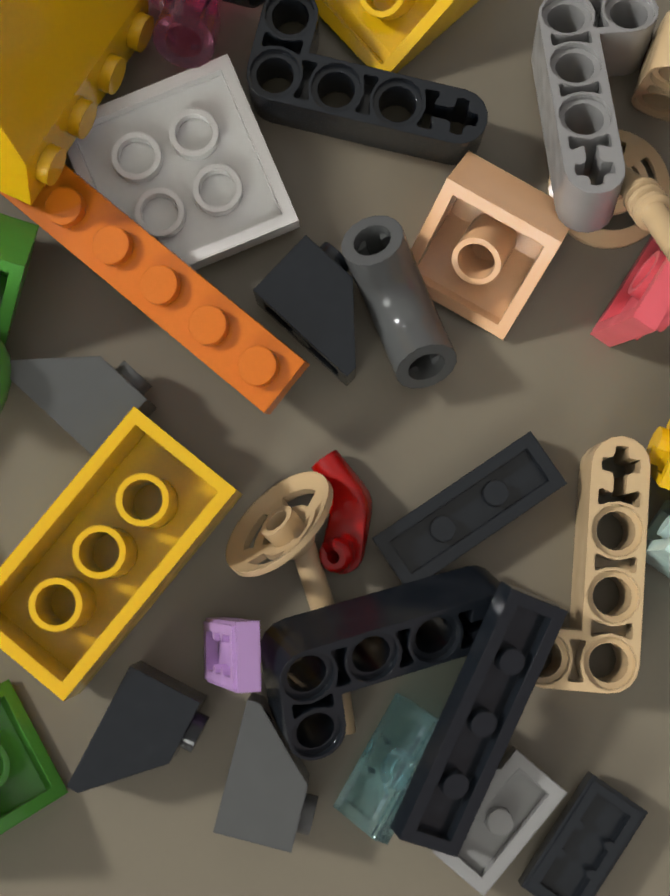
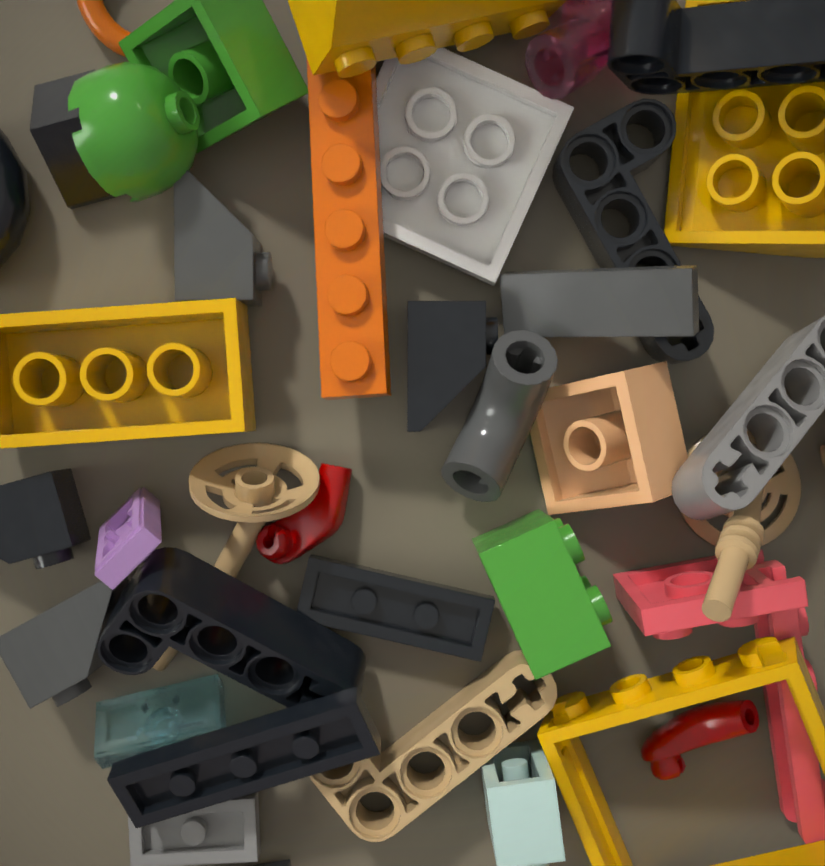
camera: 45 degrees right, 5 degrees up
(383, 153) = (602, 302): none -> dark grey tile
(555, 384) = (541, 592): none -> bright green brick

